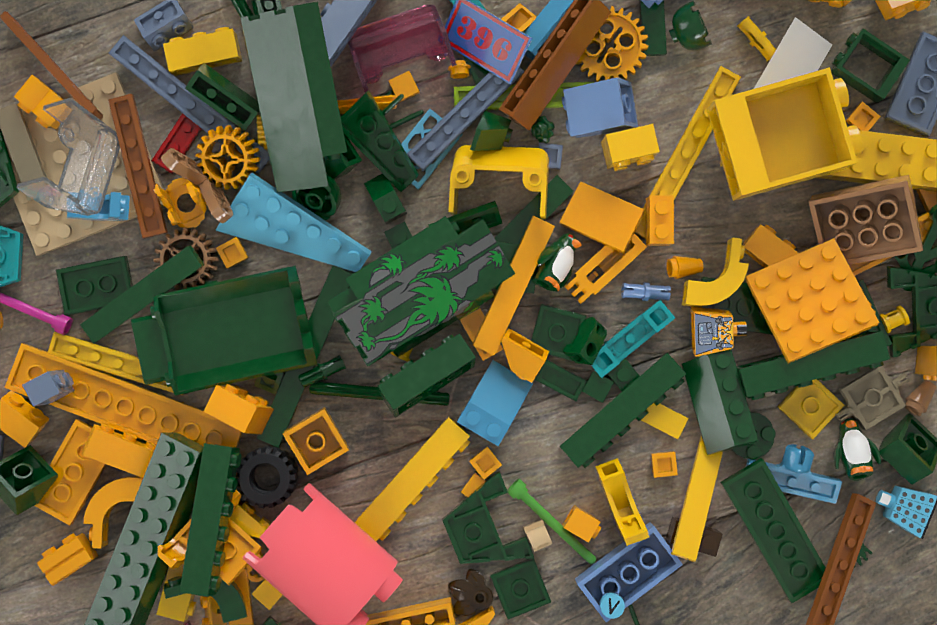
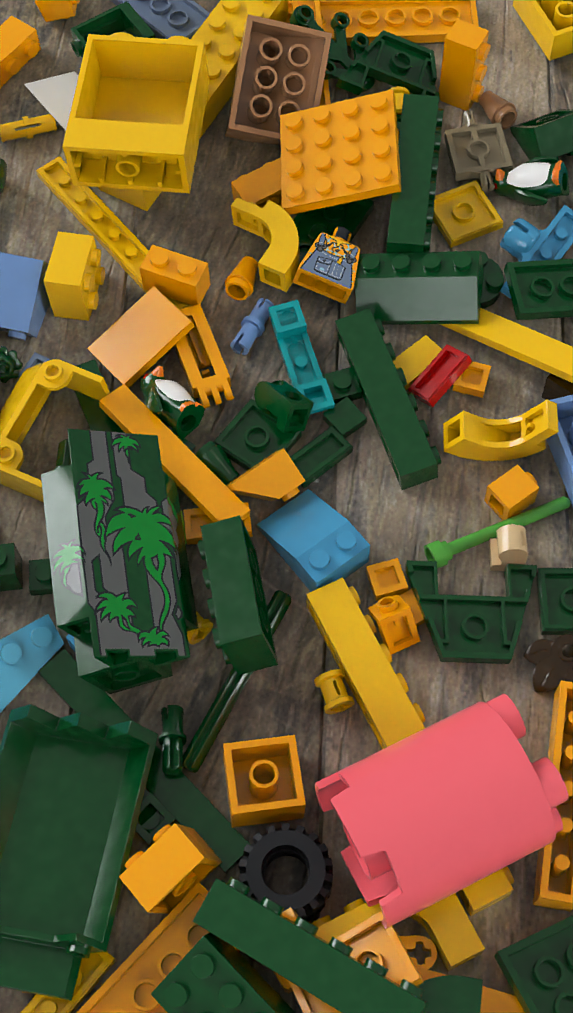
camera: 60 degrees left, 25 degrees down
(394, 459) = (334, 691): none -> yellow bush
(456, 479) = (395, 623): none -> light orange bracket
(524, 314) = (218, 462): none -> dark green cone
(655, 441) = (440, 375): none -> red tile

